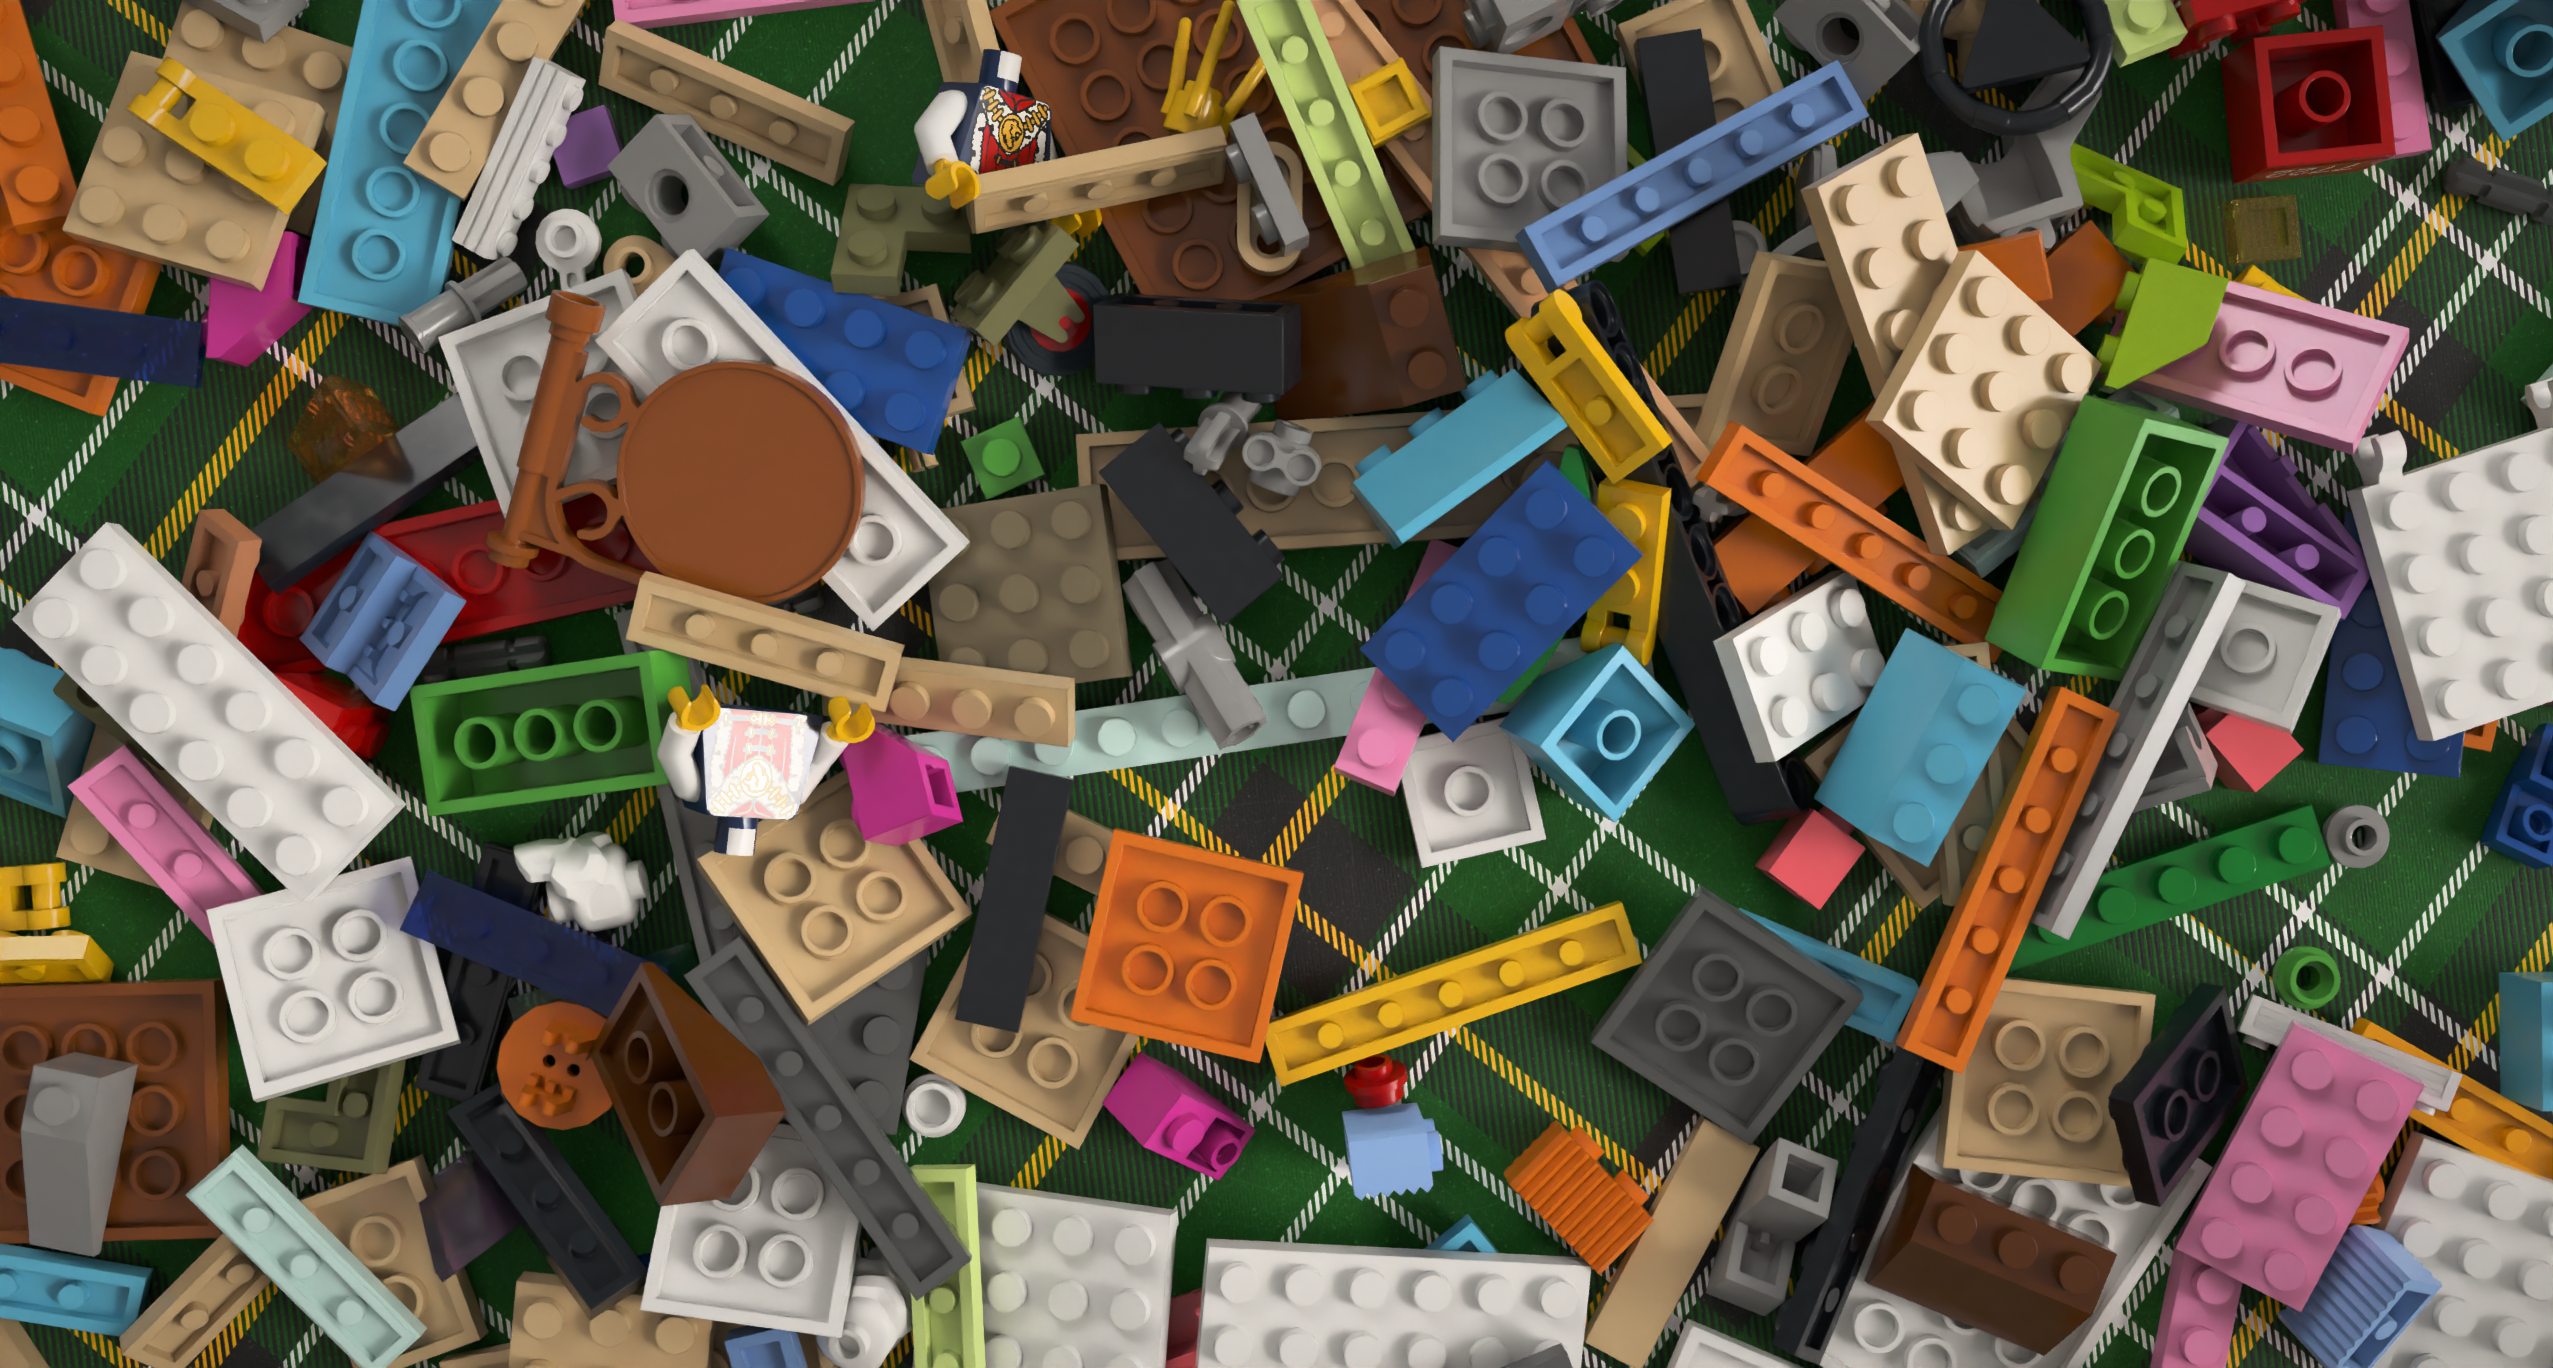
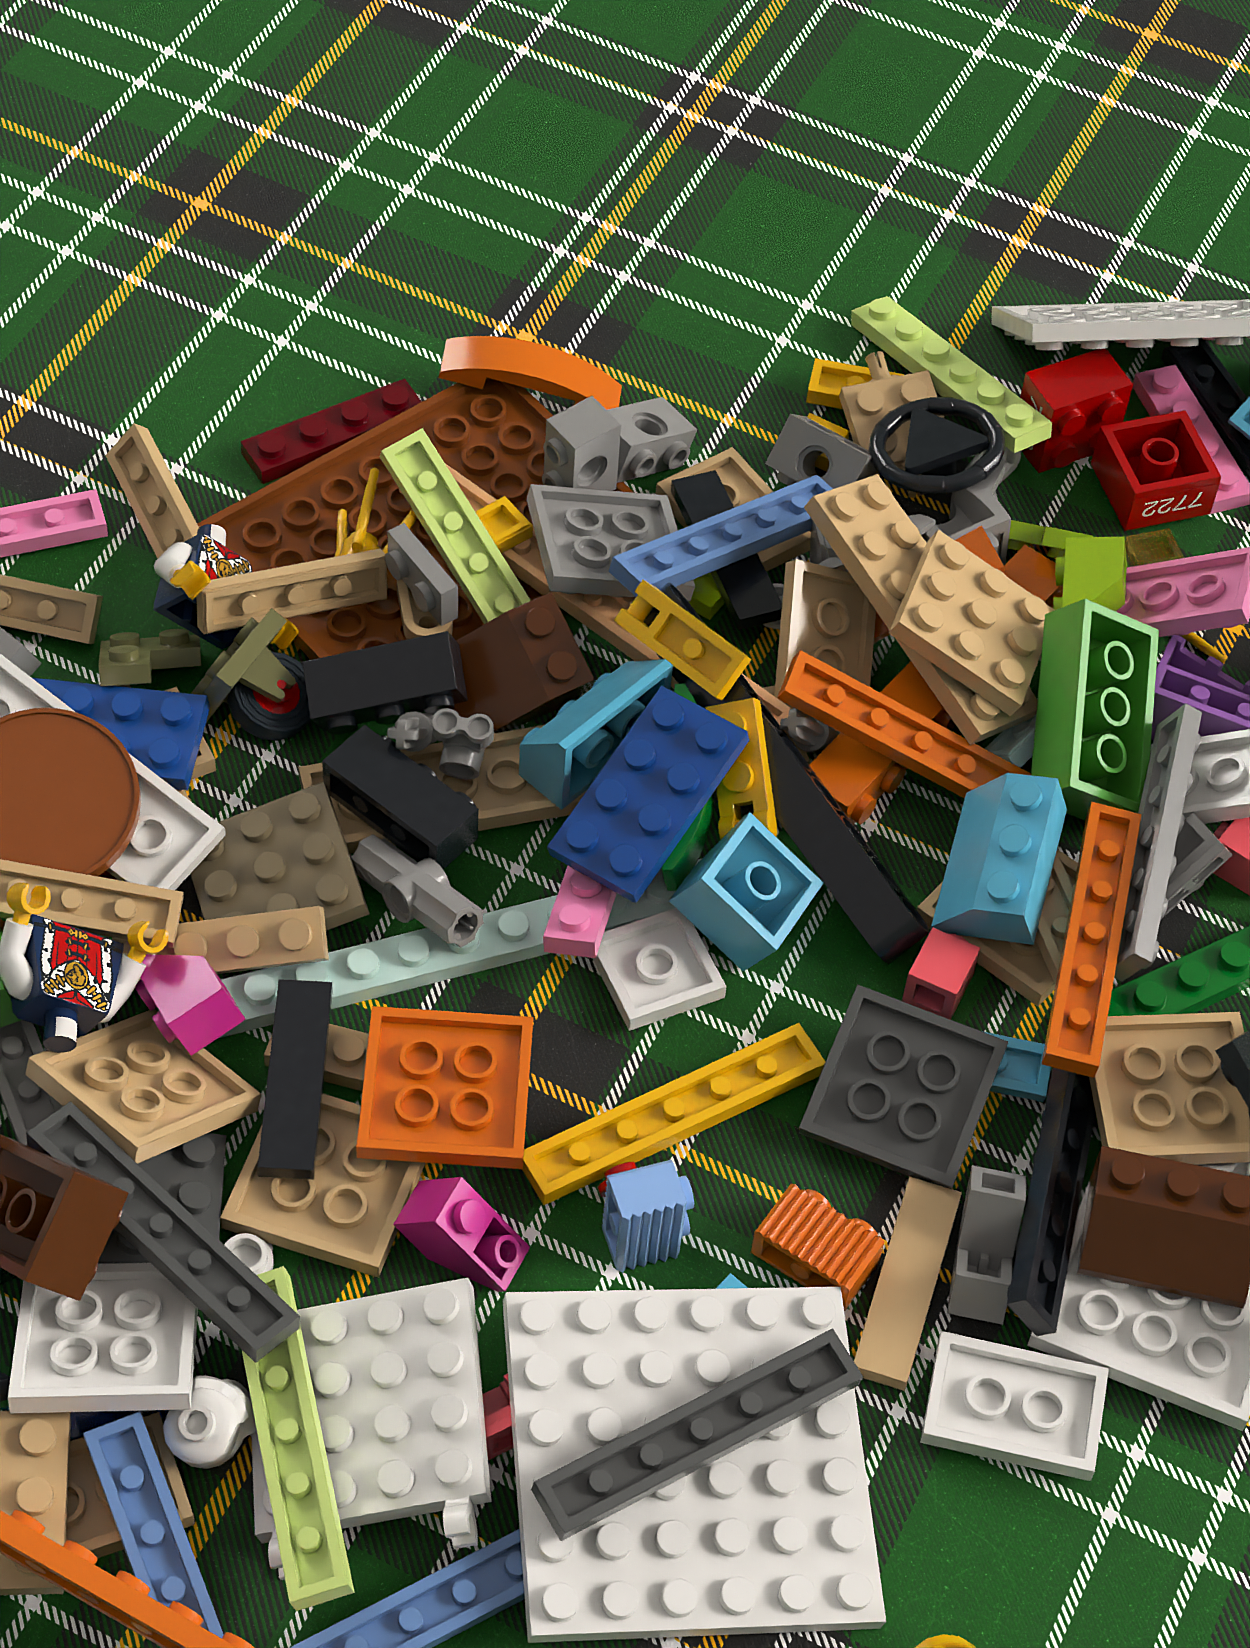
camera: 15 degrees left, 35 degrees down
(1003, 459) = (239, 793): bright green plate -> none
(1801, 665) = (892, 827): white plate -> none

